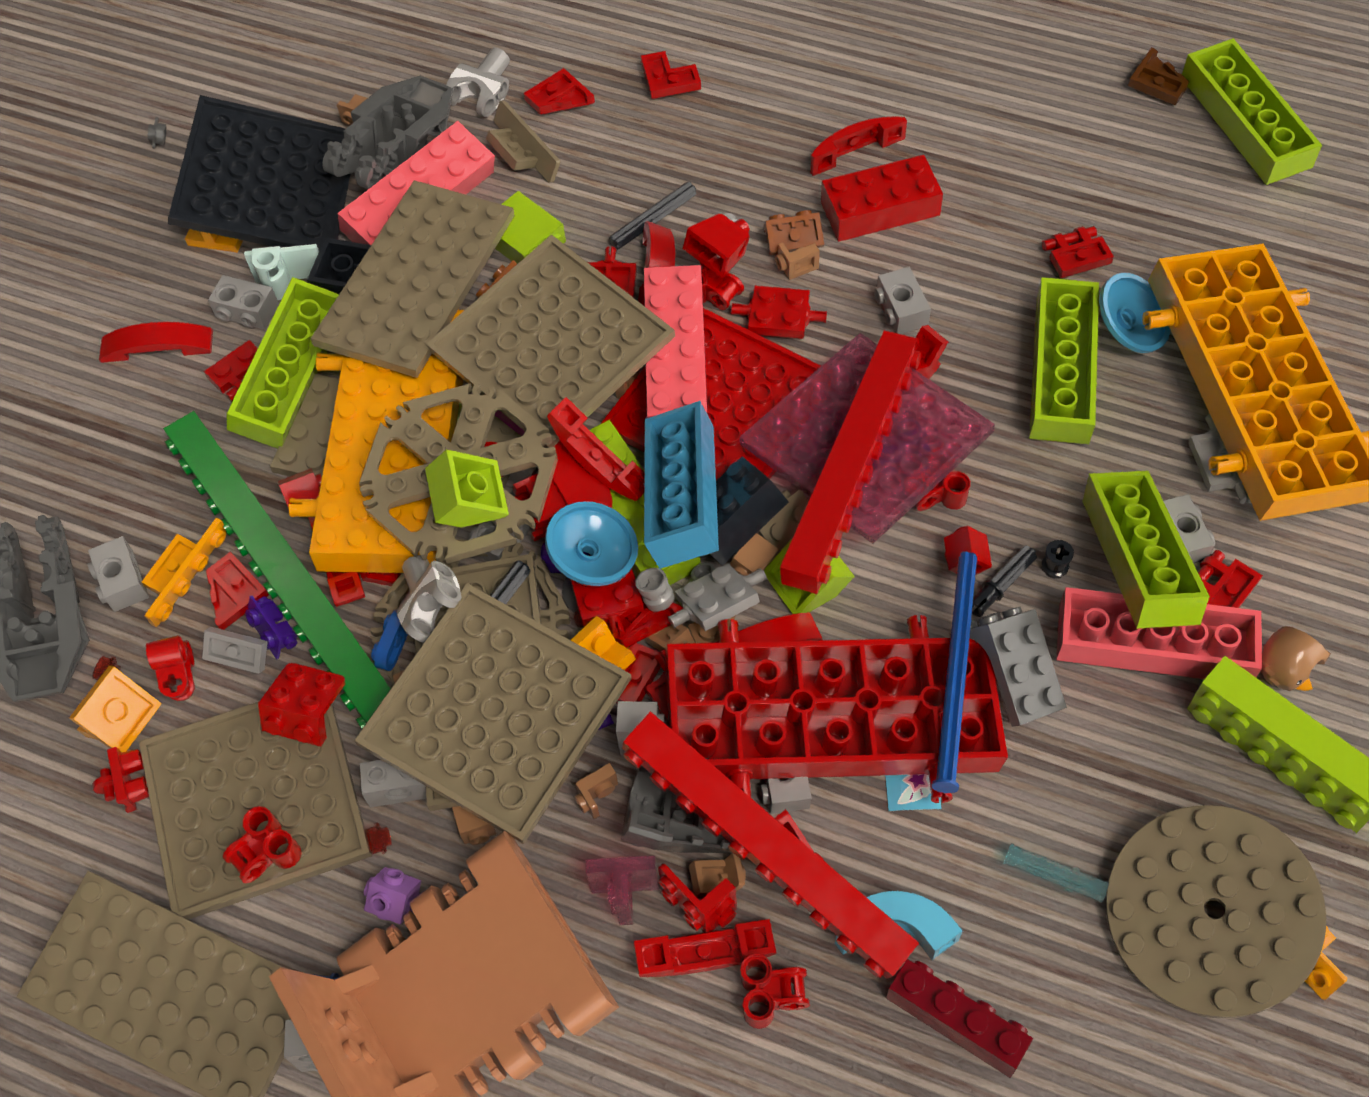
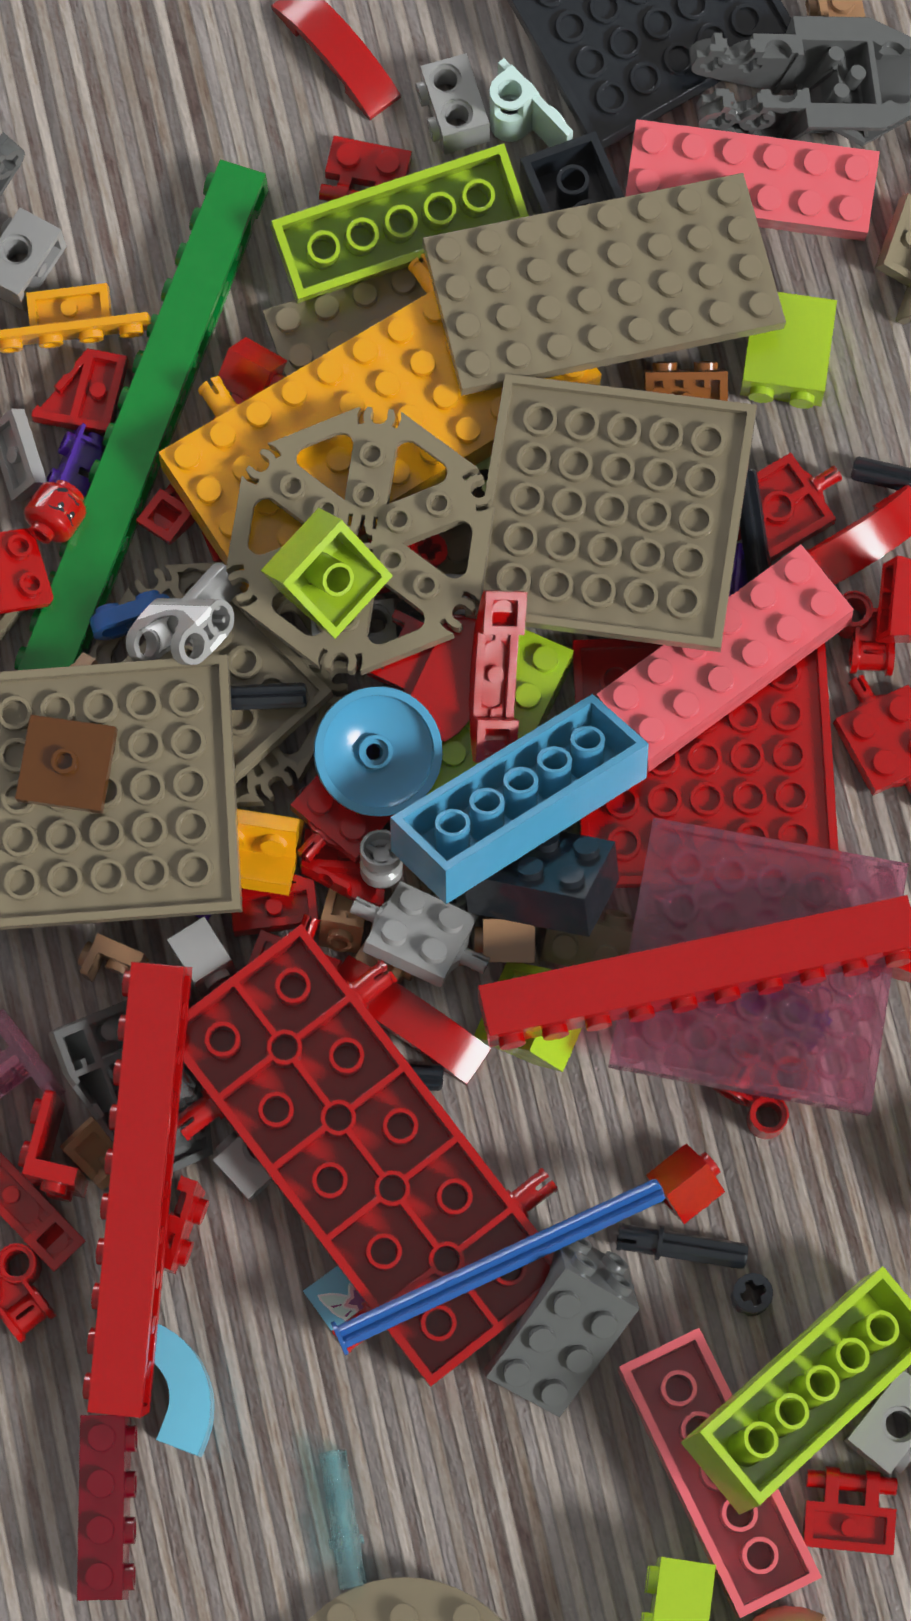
camera: 55 degrees right, 15 degrees up
(291, 640) = (55, 511): none -> red head
(460, 716) = (66, 764): none -> reddish brown plate

